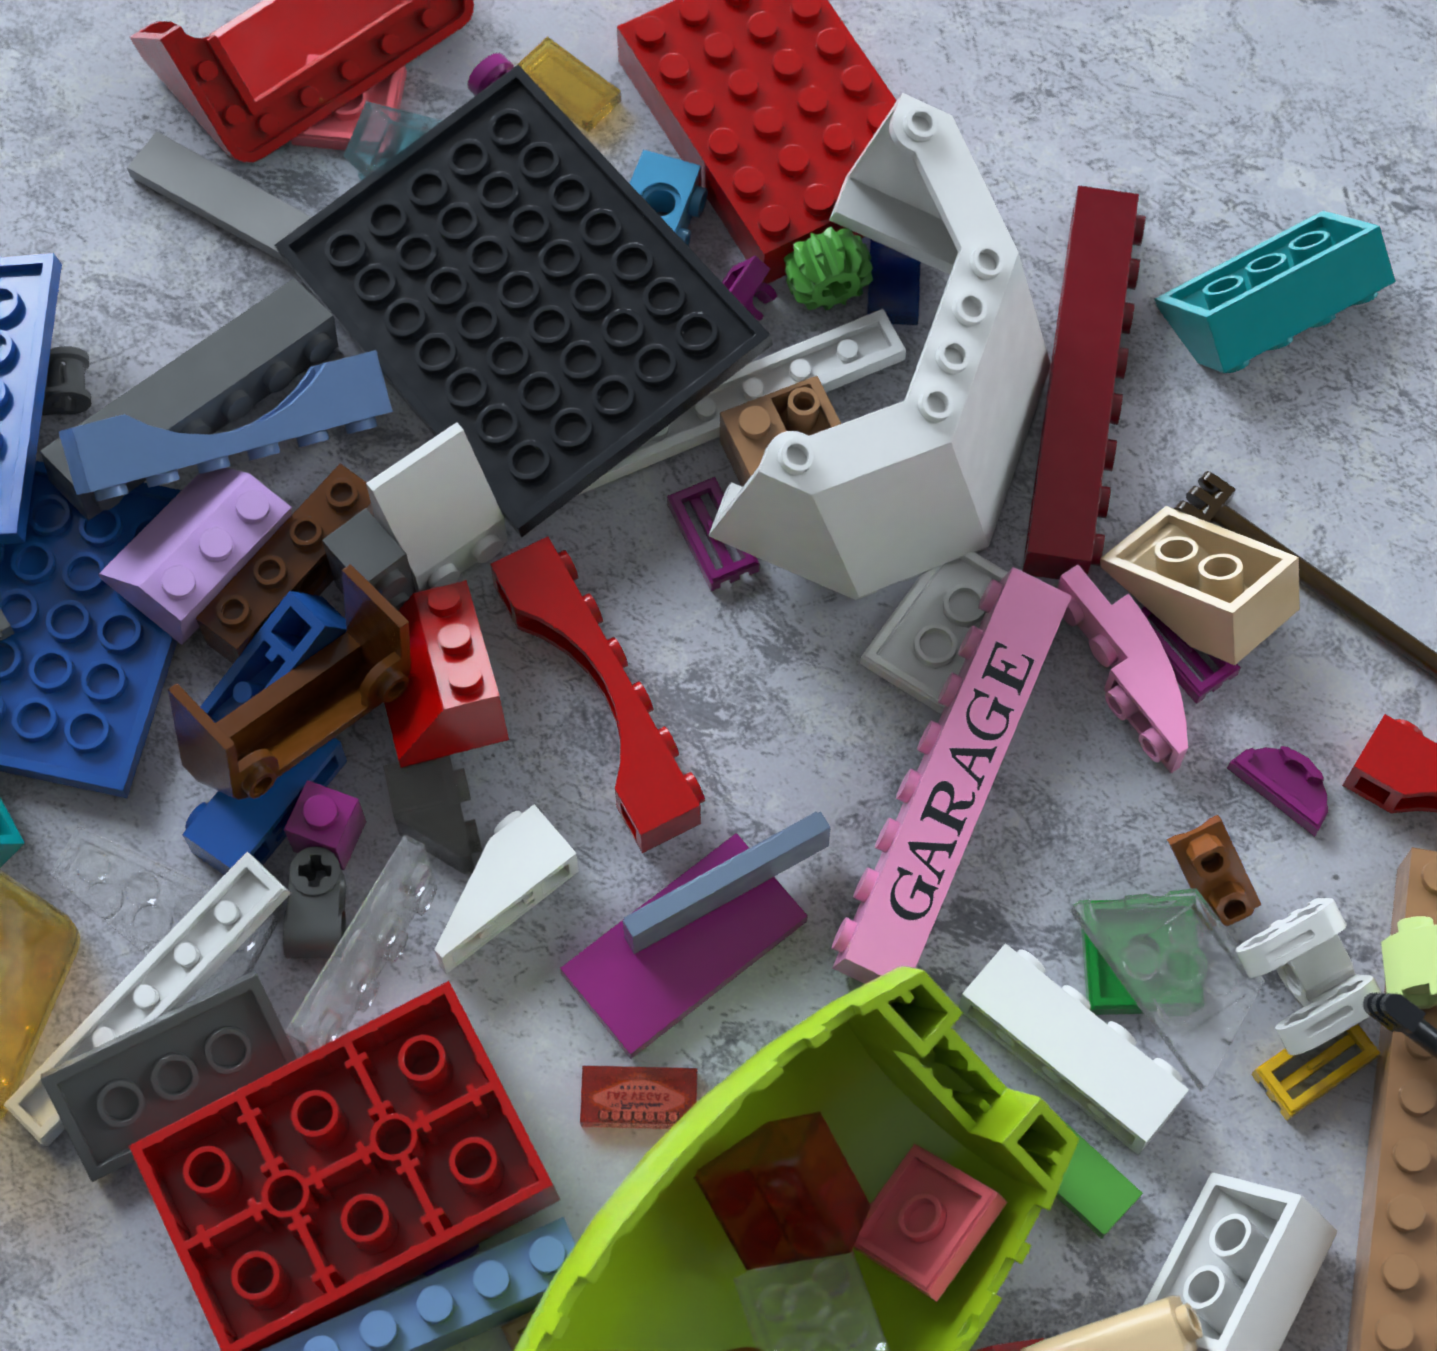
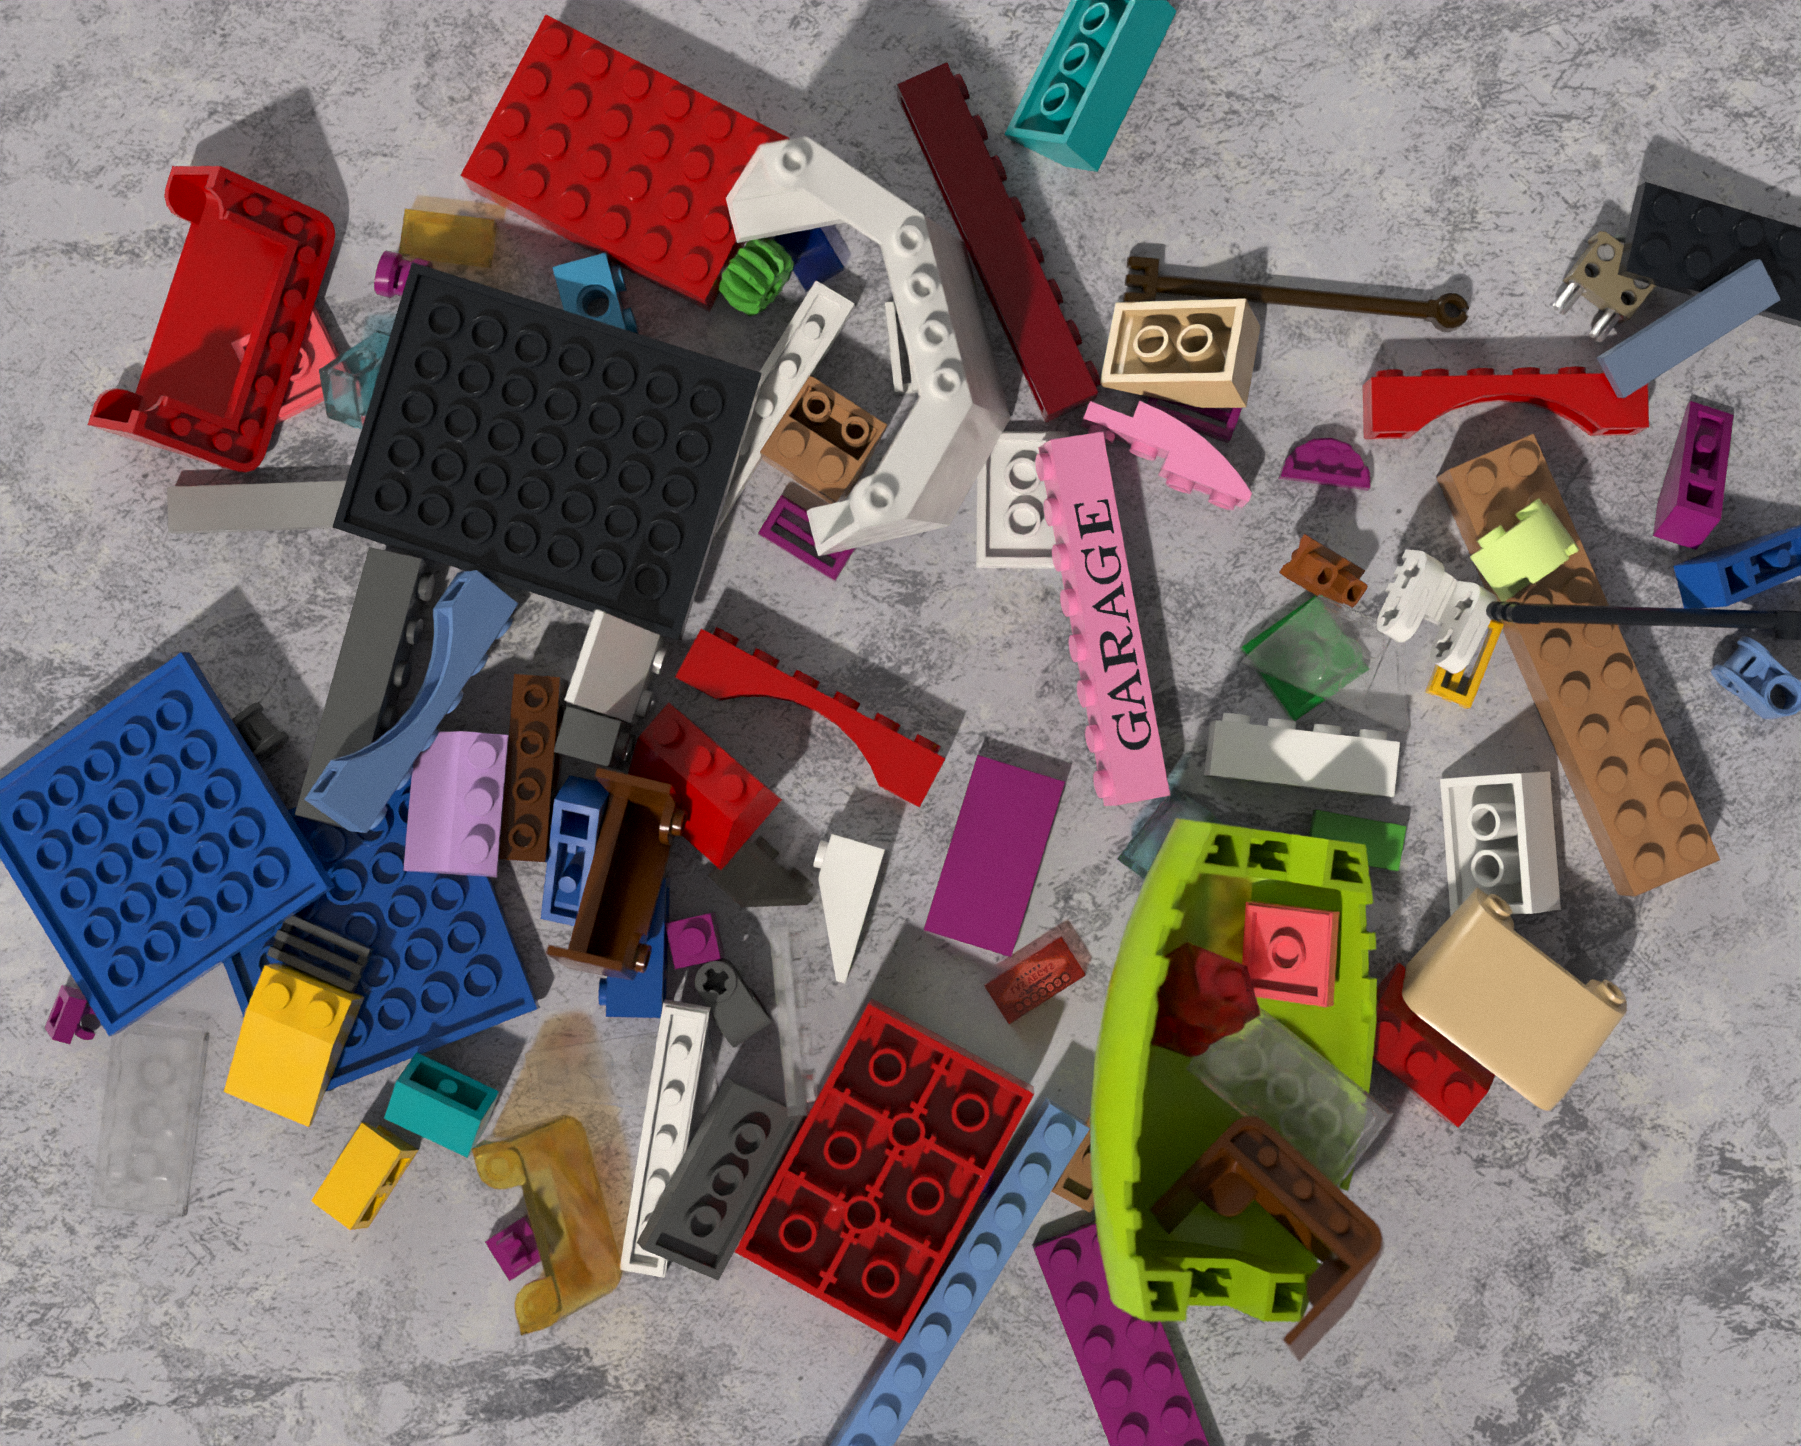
camera: 30 degrees left, 20 degrees up
(726, 881) = (999, 800): sand blue tile -> none
(746, 281) = (698, 329): magenta tile -> none

